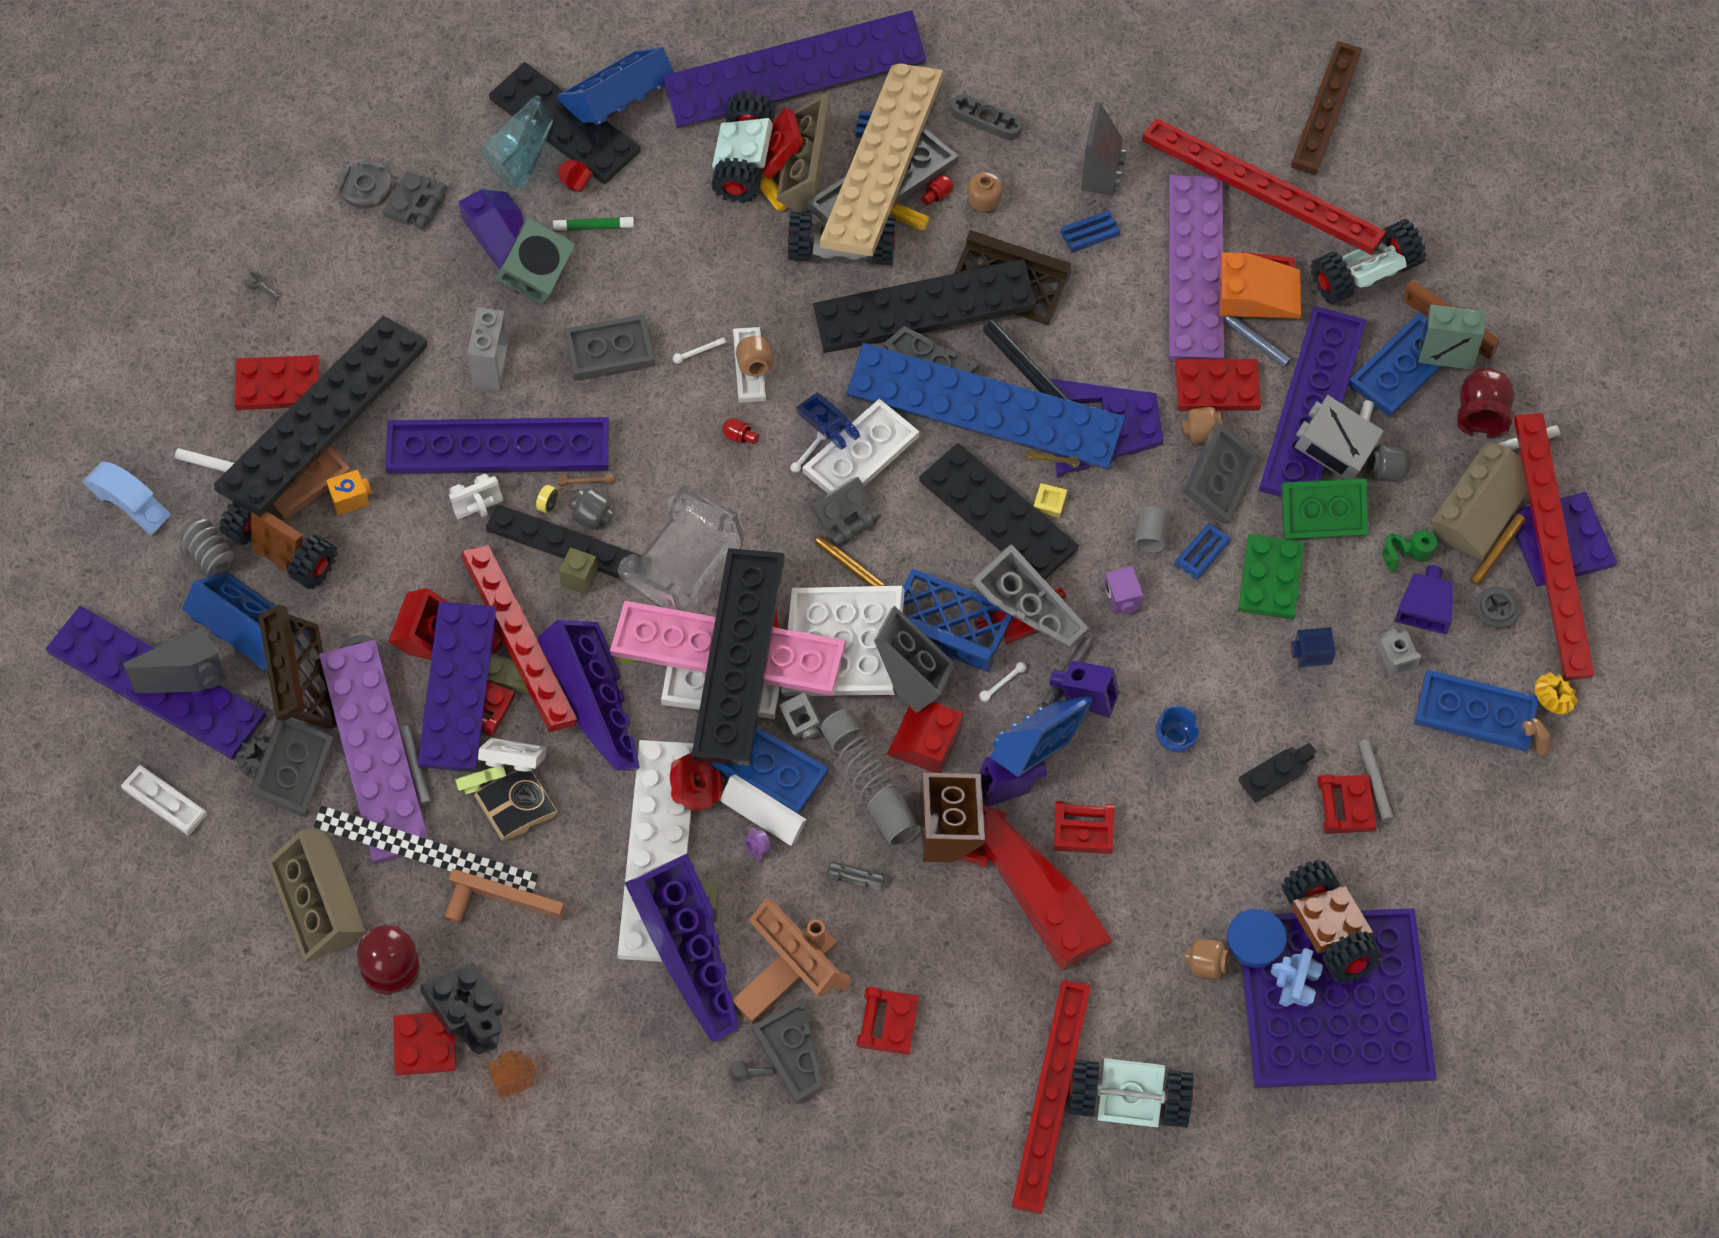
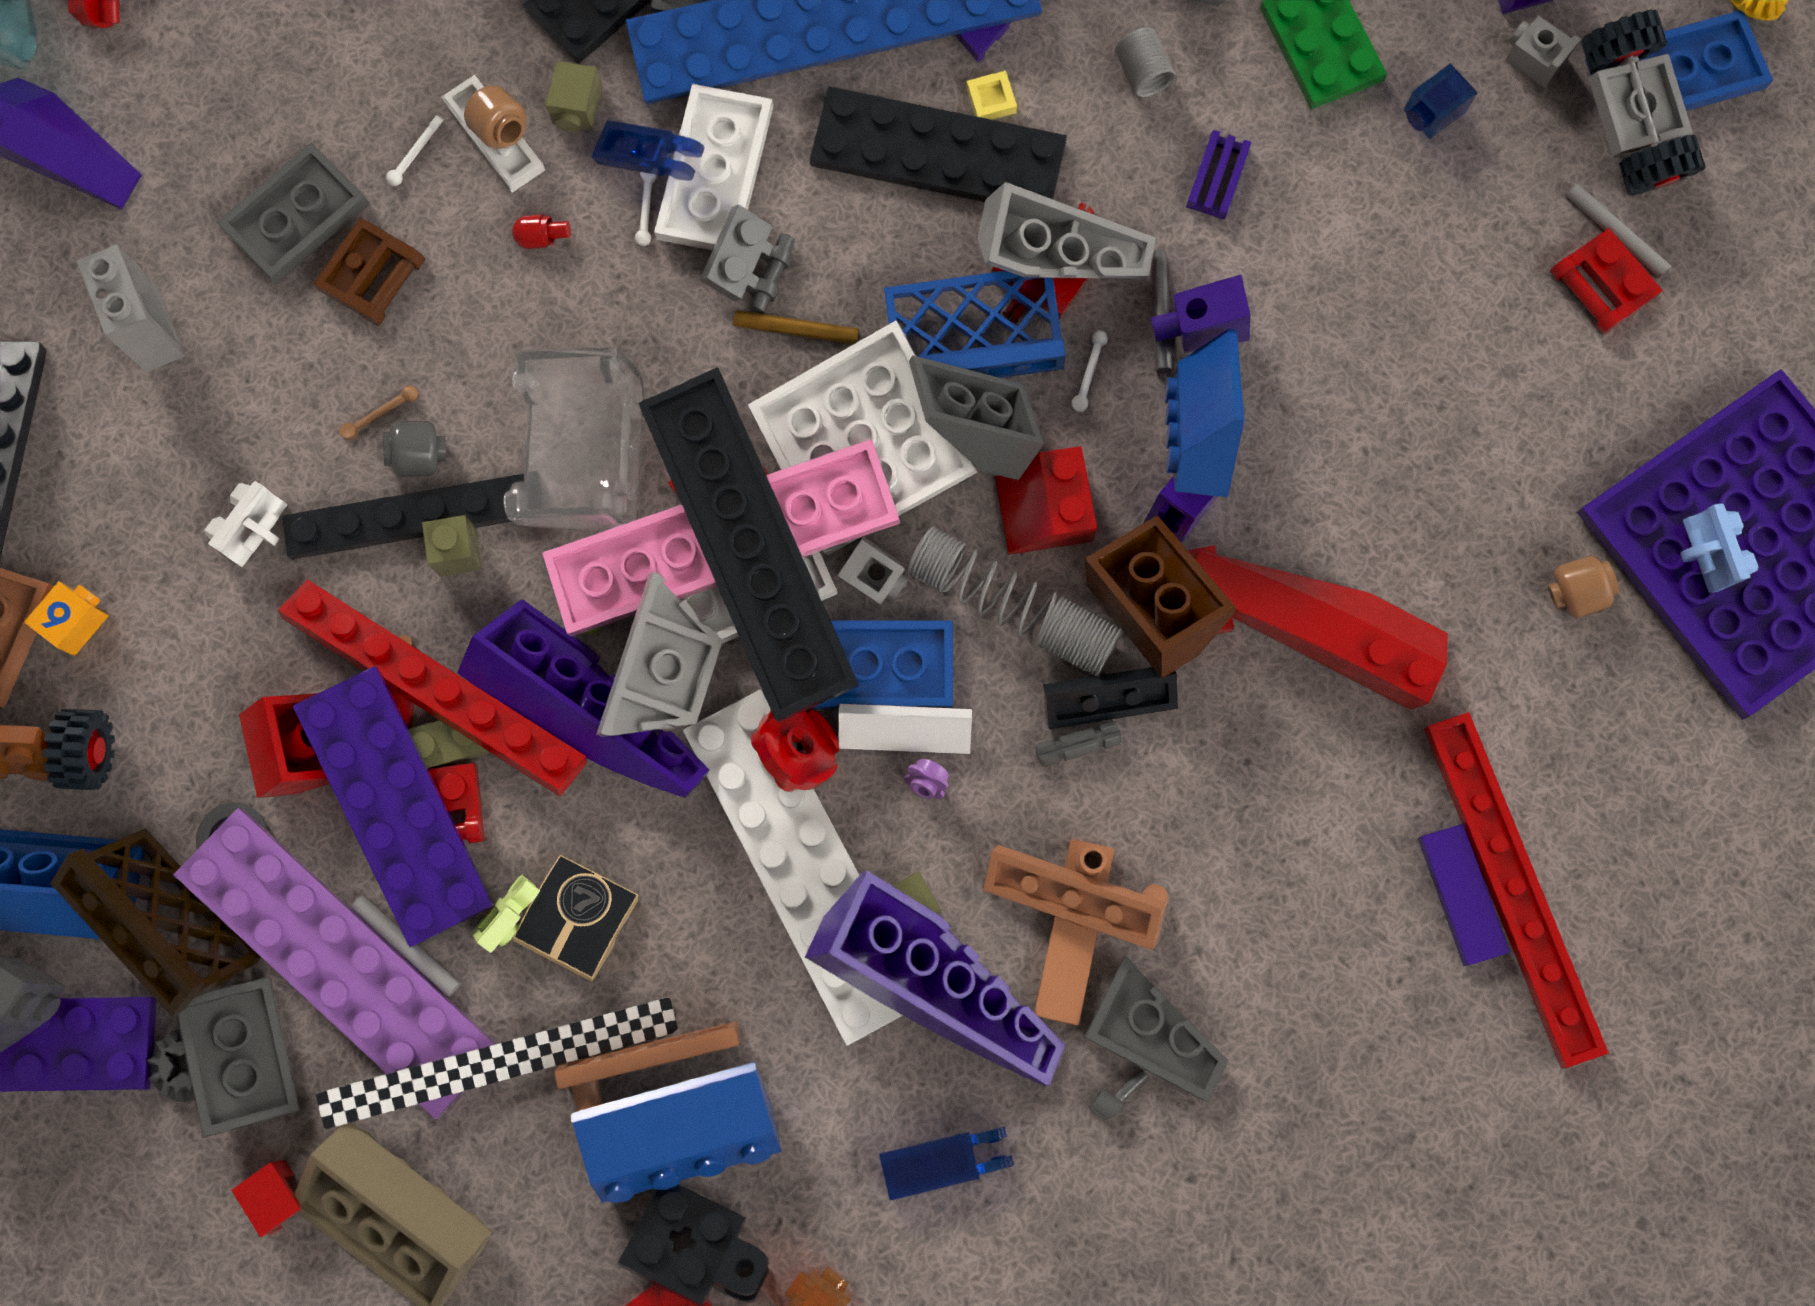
camera: 30 degrees left, 15 degrees up
(164, 800) = (89, 1208): white tile -> none
(261, 845) = (268, 1197): none -> red panel
(388, 959) = (548, 1253): dark red tile -> none
(497, 445) = (228, 435): dark purple plate -> none
(497, 937) = (677, 1133): none -> blue slope
(521, 755) = (529, 857): white plate -> none
(535, 261) = (117, 150): sand green brick -> none
(547, 499) = (345, 469): light yellow tile -> none
(598, 223) = (163, 57): green bar -> none
(626, 394) = (358, 264): none -> reddish brown plate
(628, 1045) = (939, 1163): none -> clear blue hinge
(649, 695) = (661, 667): none -> light grey wing
(807, 369) = (574, 96): none -> olive brick
(889, 859) = (1109, 697): none -> black plate
(897, 1025) = (1259, 909): red plate -> none
(1020, 1084) = (1463, 895): none -> dark purple tile
(1072, 461) = (991, 29): clear yellow hinge -> none
(1083, 835) = (1324, 515): red plate -> none
(1123, 590) = (1163, 163): medium lavender brick -> none
(1131, 1093) = (1619, 825): plate -> none
(1171, 602) = (1228, 145): none -> dark purple tile
(1177, 729) = (1349, 307): blue hair -> none
(1190, 567) = (1217, 86): blue tile -> none
(1256, 938) = (1629, 524): blue tile -> none
(1276, 771) = (1497, 290): black hinge -> none
(1332, 921) = (1712, 447): plate -> none
(1428, 711) = (1641, 103): none -> plate
(1542, 736) = (1777, 57): medium nougat arm -> none

